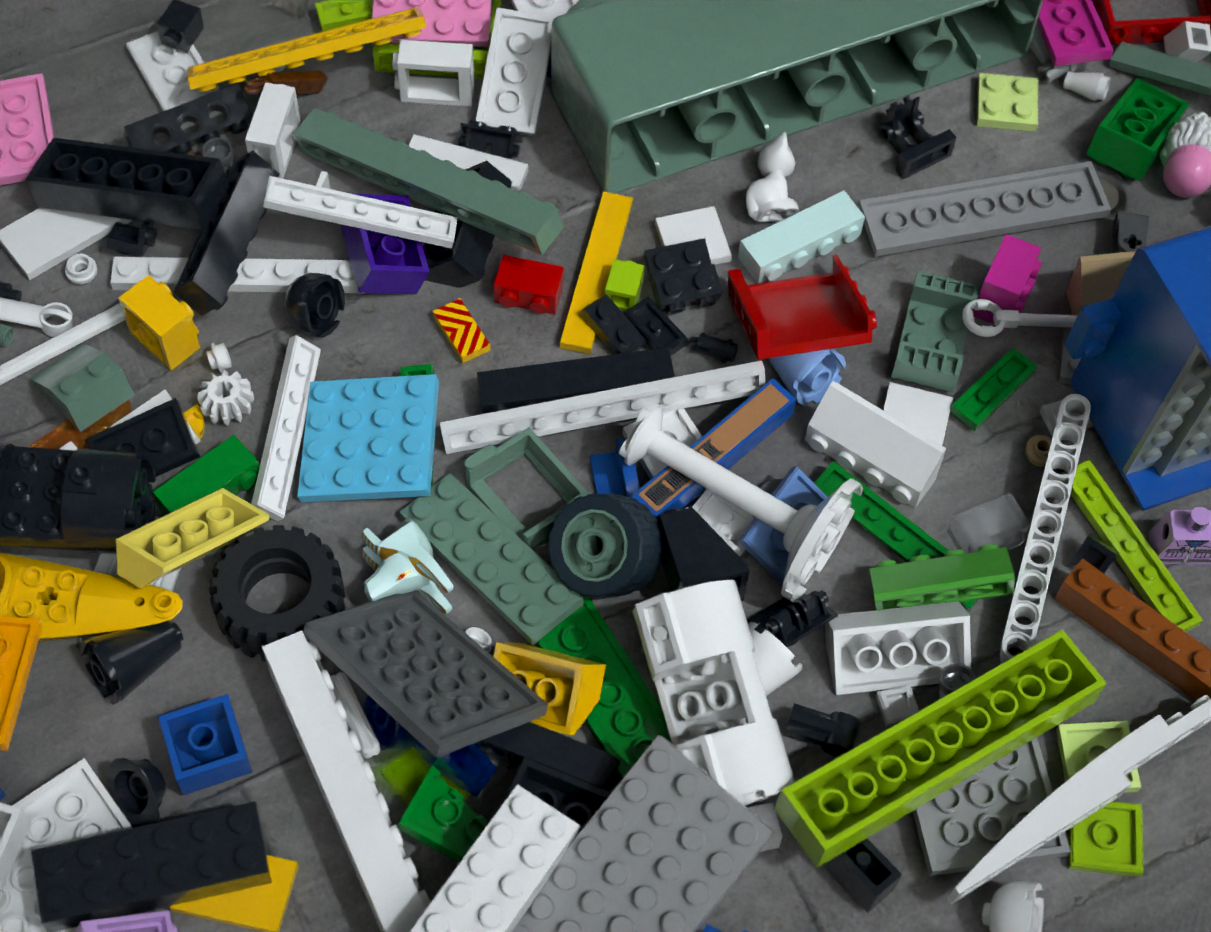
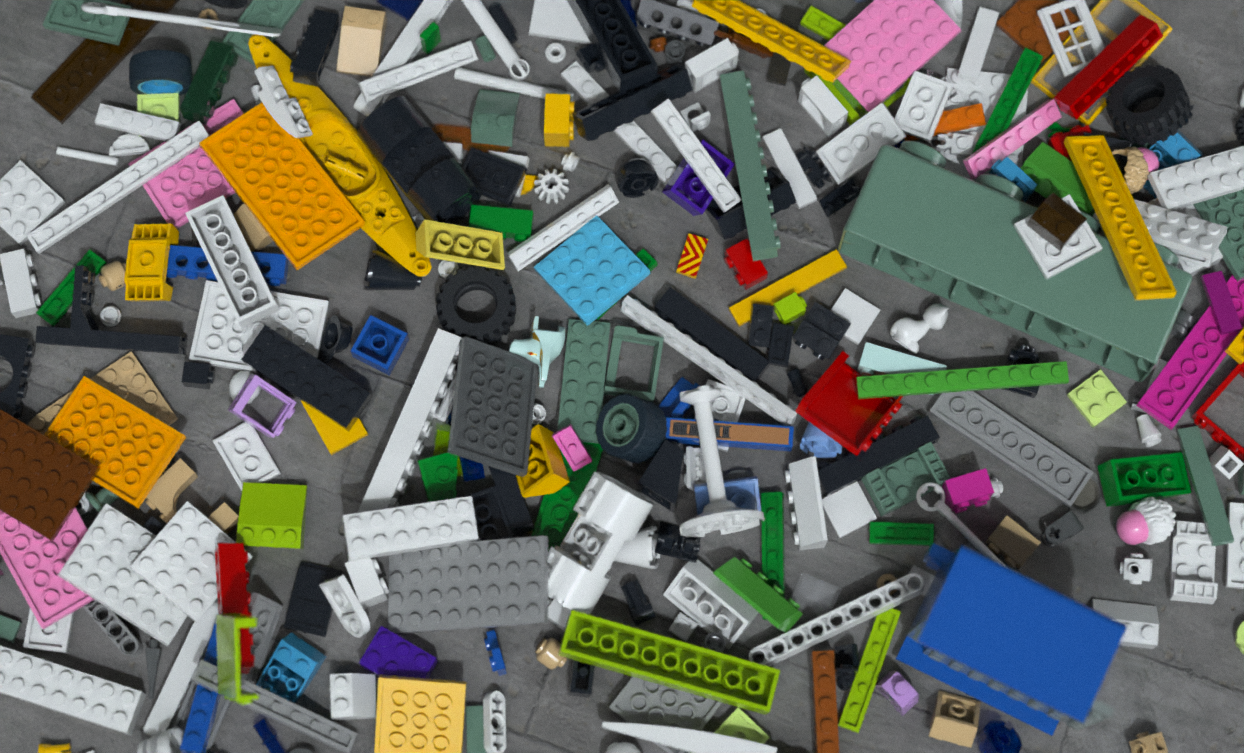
camera: 50 degrees right, 15 degrees up
(196, 589) = (447, 267): none -> white plate
(342, 78) = (779, 65): none -> clear smoke tile
(550, 141) = (839, 197): none -> black hinge
(563, 630) = (572, 447): none -> dark pink plate
(797, 884) = (548, 655): none -> tan head
(872, 190) = (962, 380): none -> bright green plate
(890, 302) = (879, 455): none -> black brick
(1128, 569) = (845, 676): none -> black hinge

